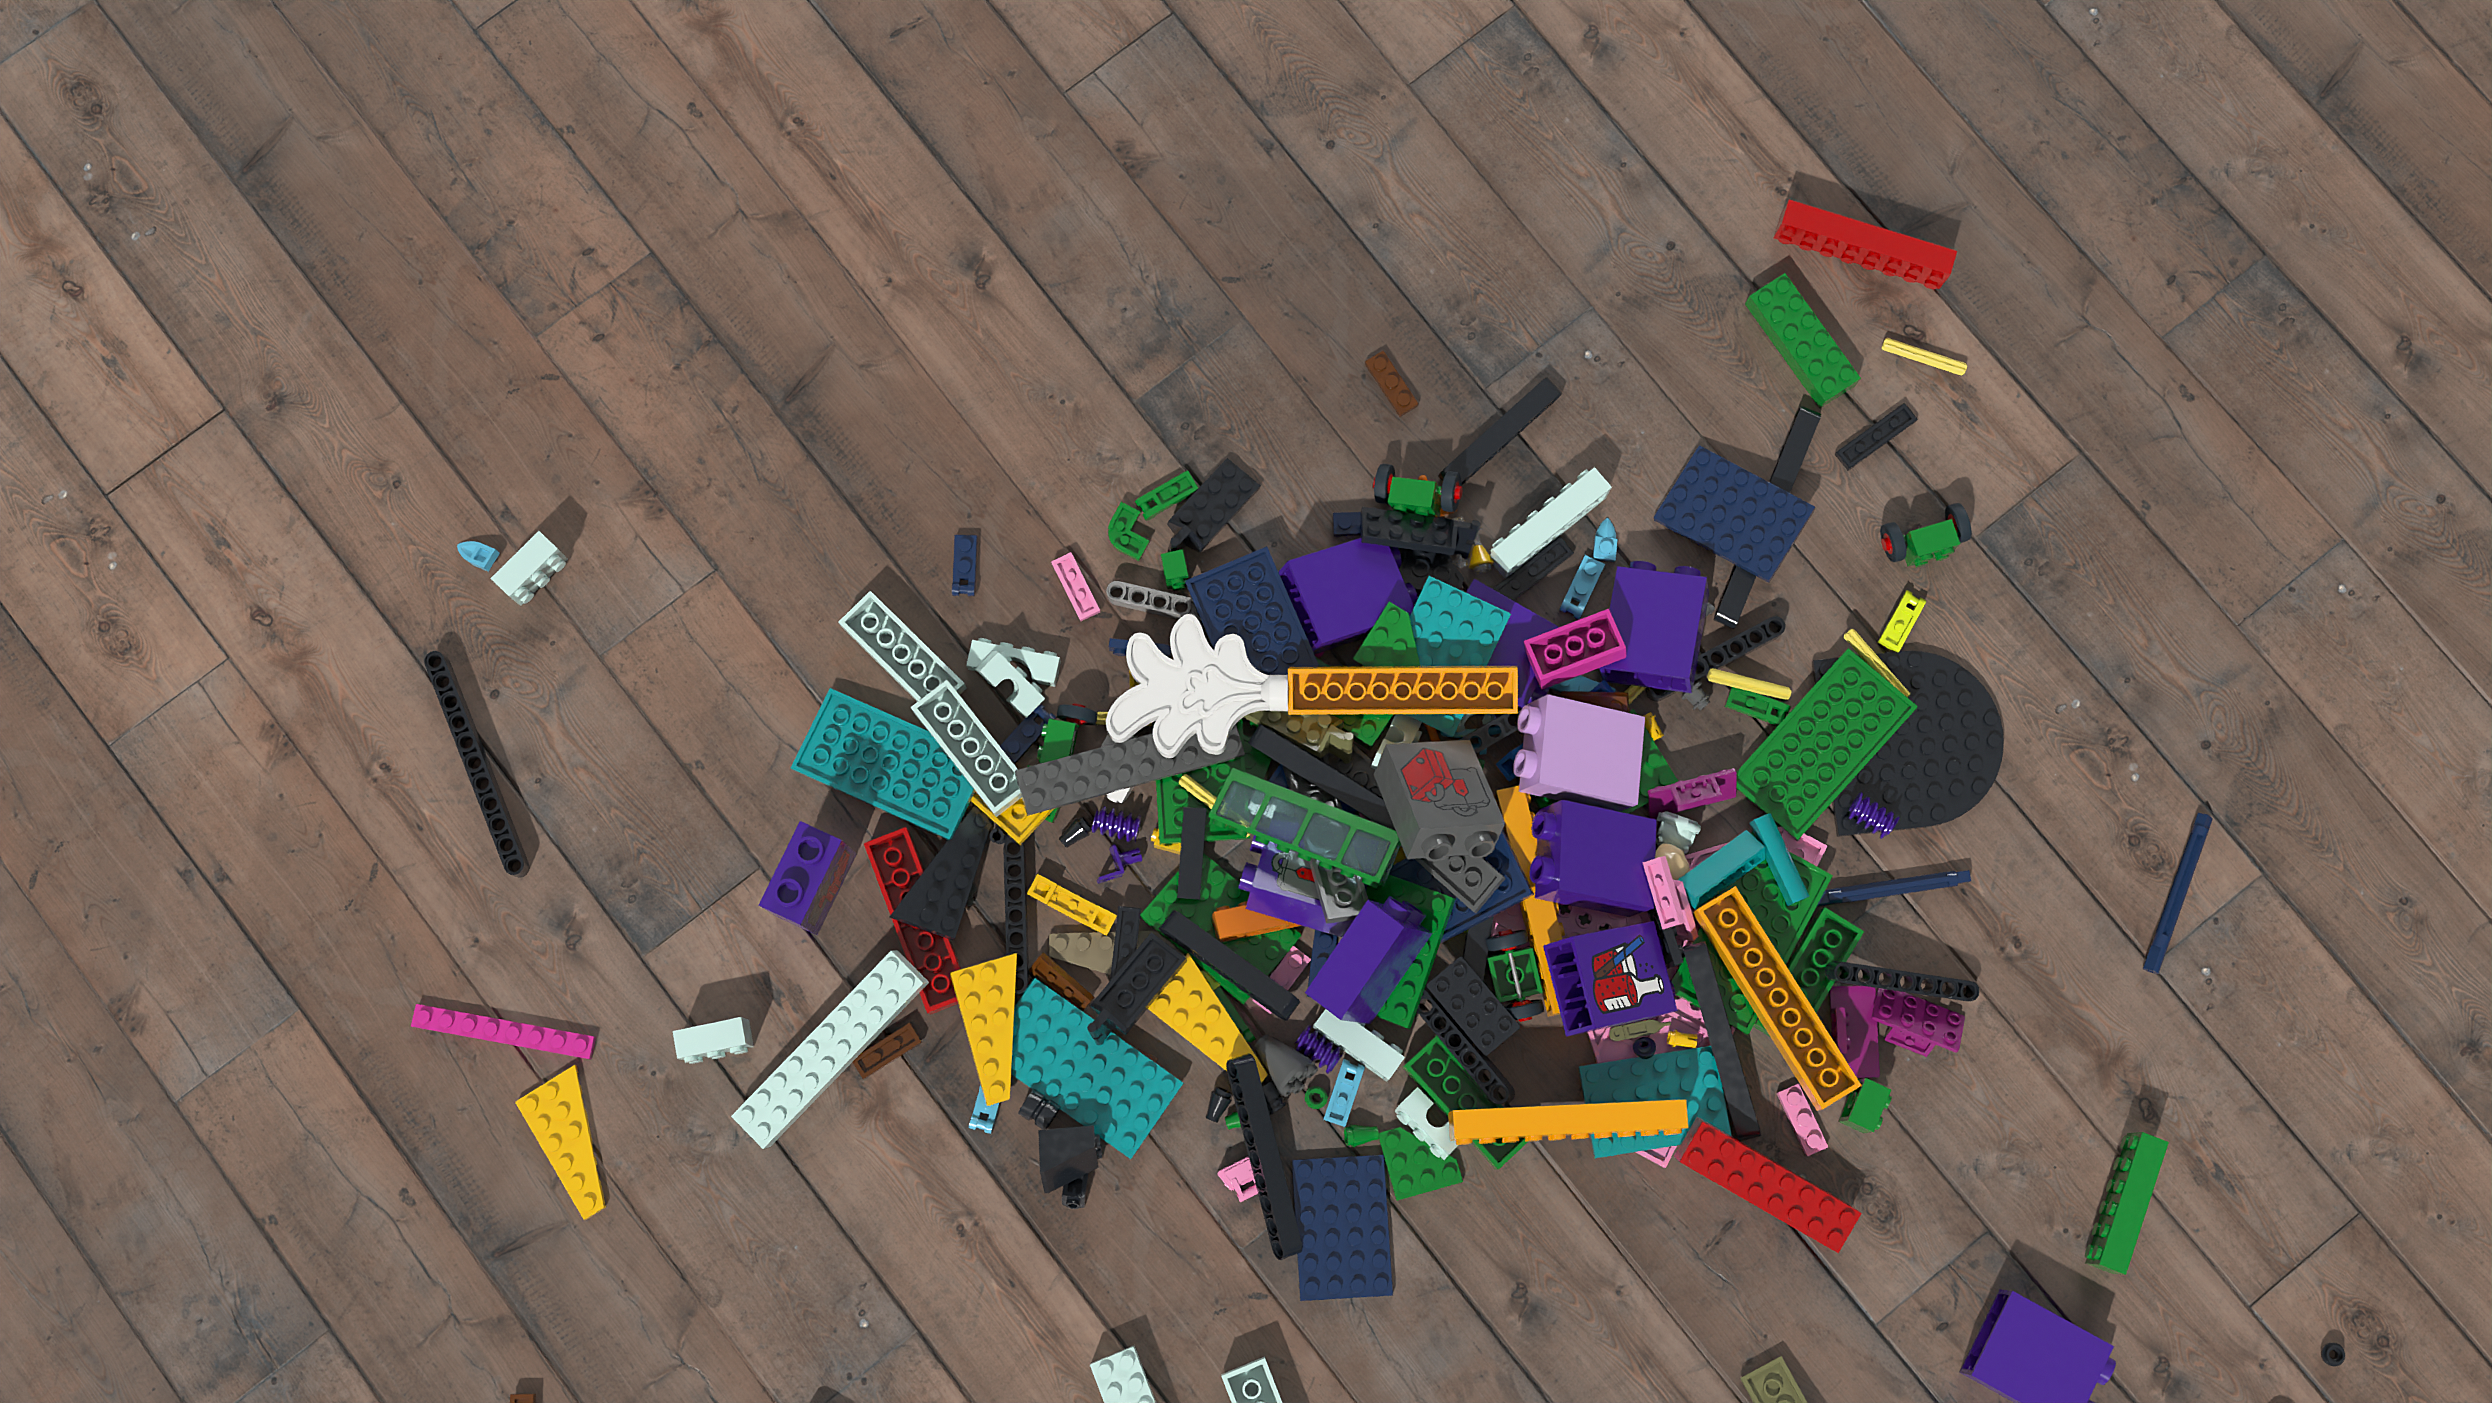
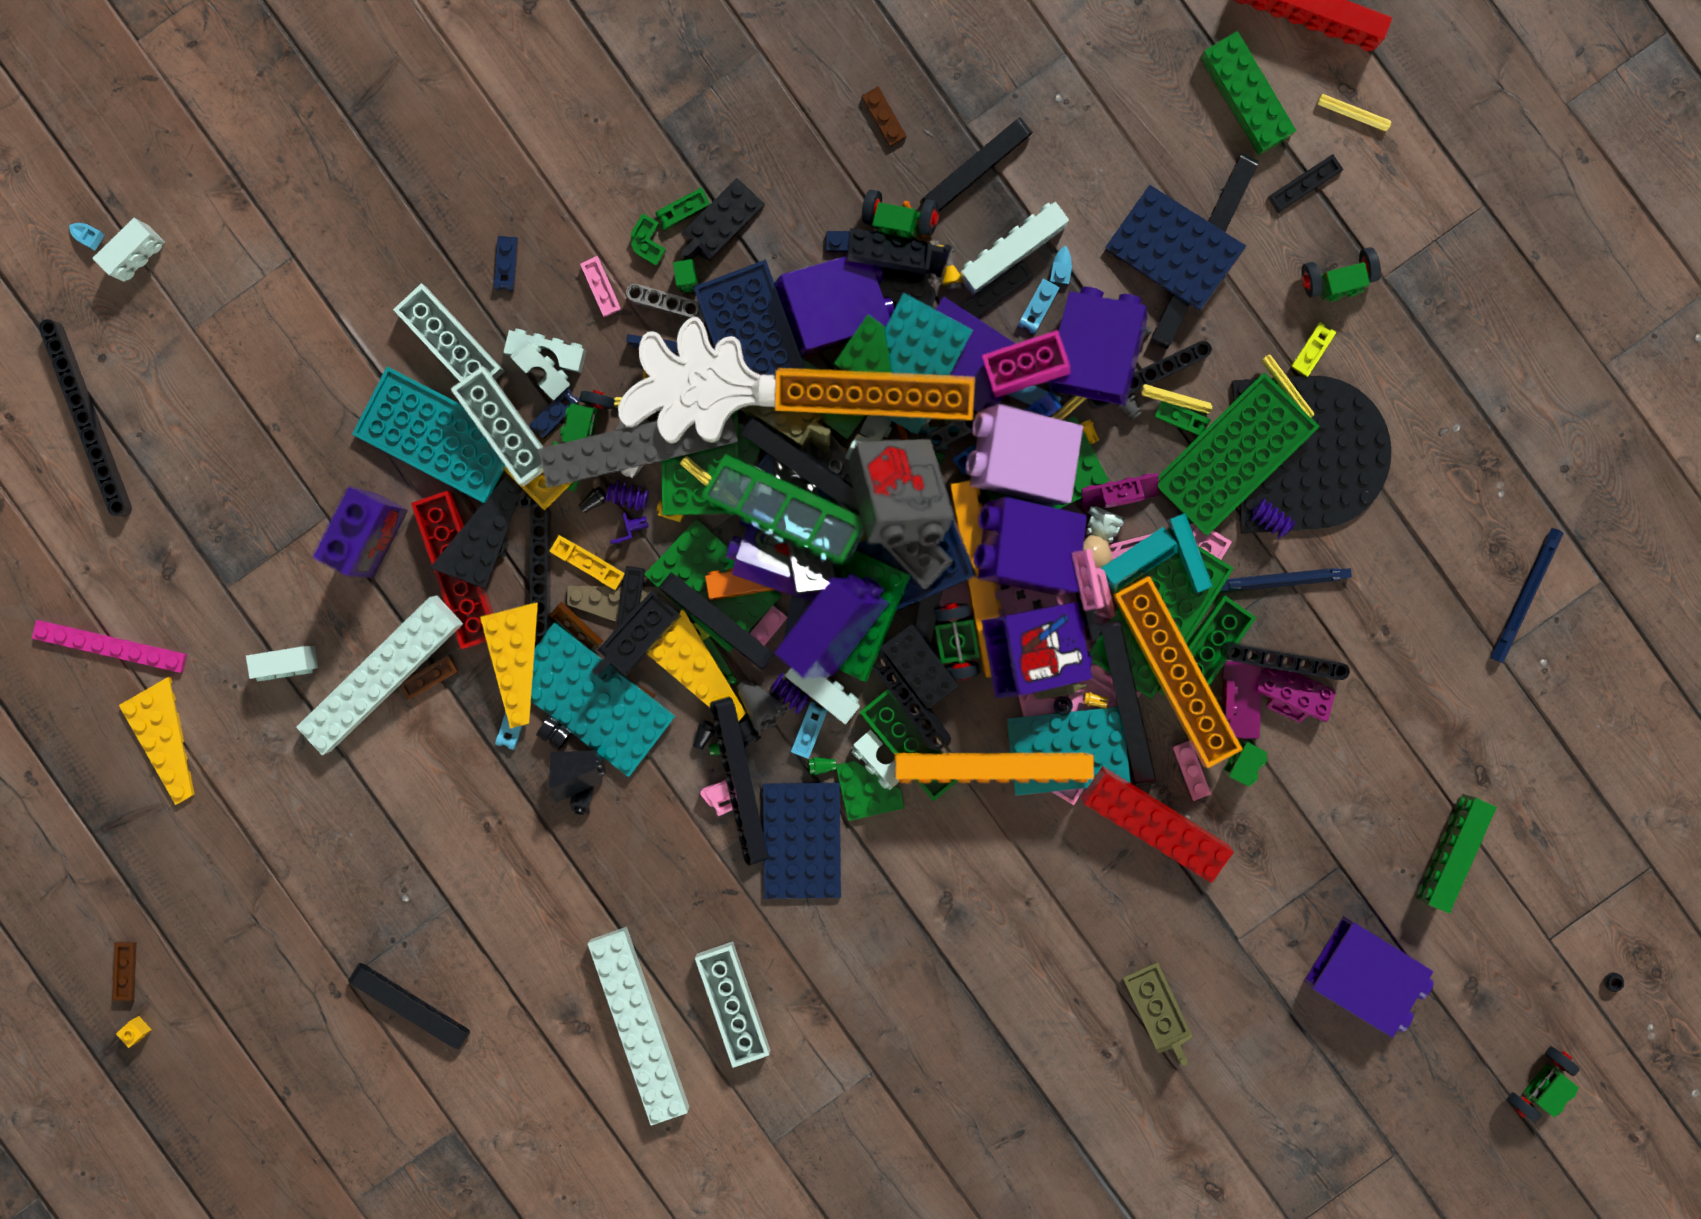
camera: 10 degrees right, 10 degrees up
(1191, 853) = (689, 524): black tile -> none
(1323, 1097) = (781, 737): green plate -> none
(1612, 700) = (1049, 409): reddish brown plate -> none

